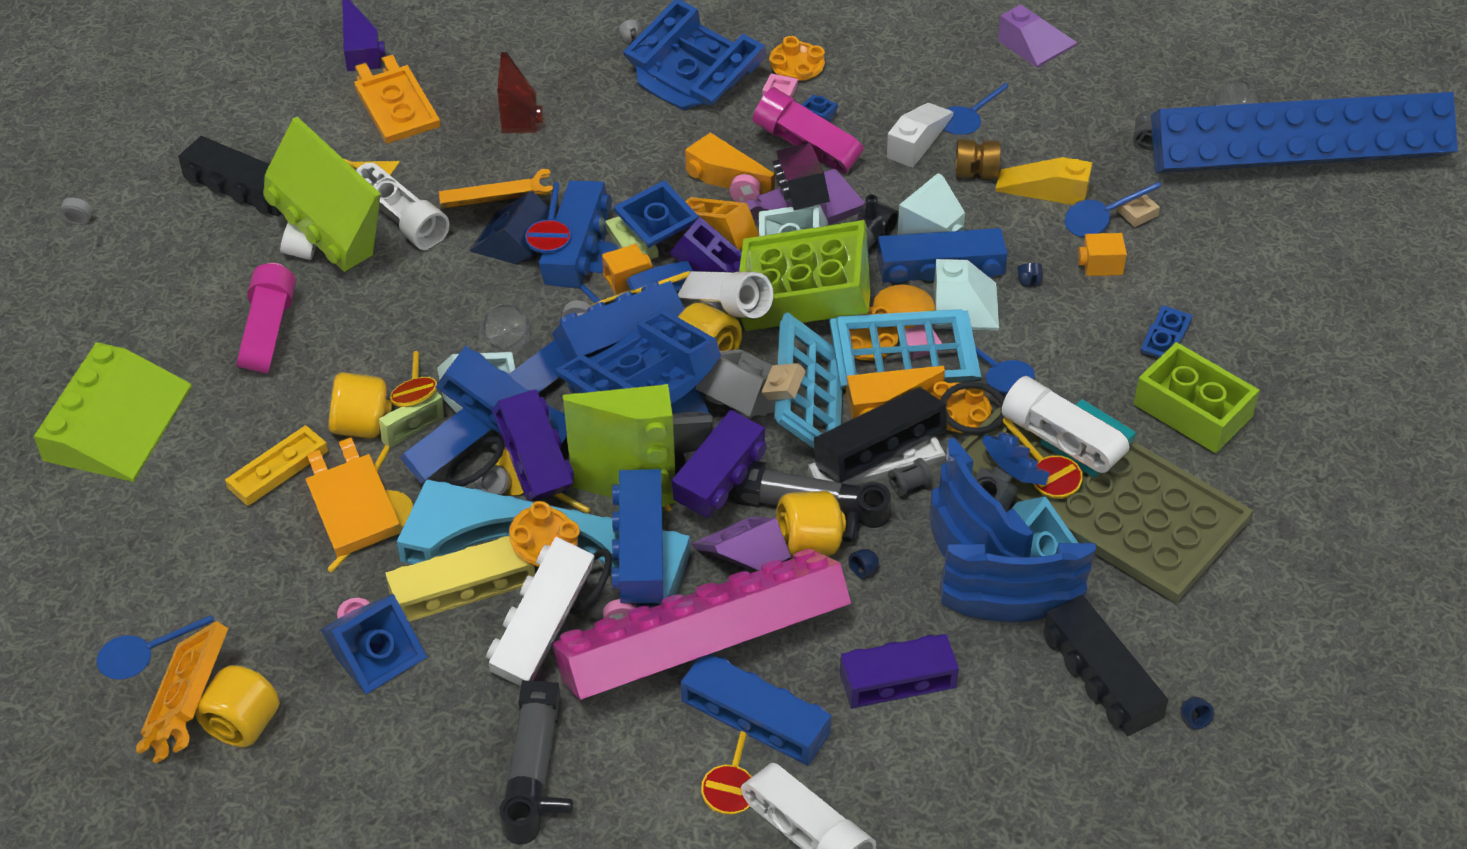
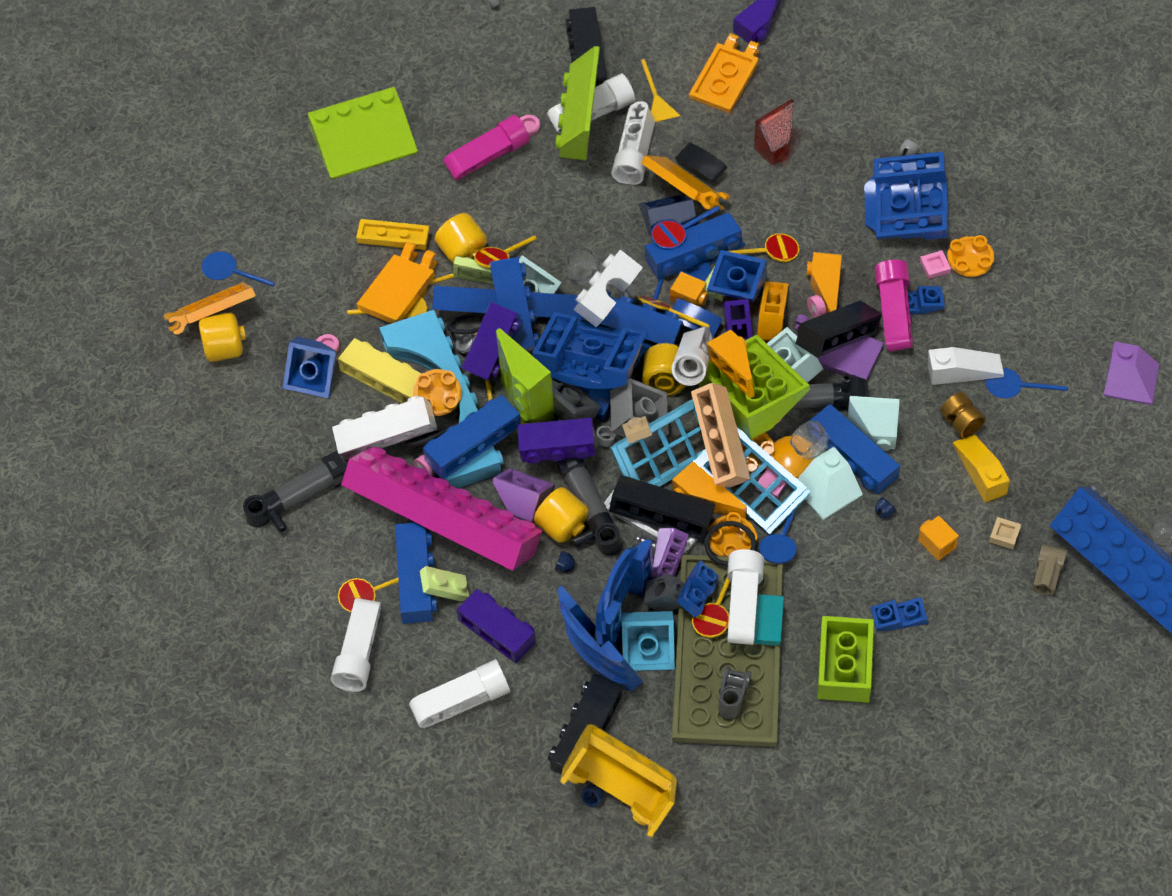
camera: 55 degrees right, 10 degrees up
(479, 171) = (701, 162): none -> black slope
(570, 288) = (618, 272): none -> white arch
(638, 179) = (778, 247): none -> piece
(780, 258) = (730, 357): none -> light orange slope
(803, 682) = (444, 583): none -> yellowish green plate
(851, 324) = (720, 435): none -> light nougat brick
(911, 271) = (810, 440): none -> clear hair
(931, 449) = (670, 546): none -> medium lavender slope
(972, 720) = (460, 694): none -> white beam
(1094, 216) = (974, 509): blue piece -> none
(1169, 505) = (733, 688): none -> dark grey piece
(1193, 663) = (623, 774): none -> yellow windscreen
(1201, 196) = (1049, 565): none -> dark tan piece

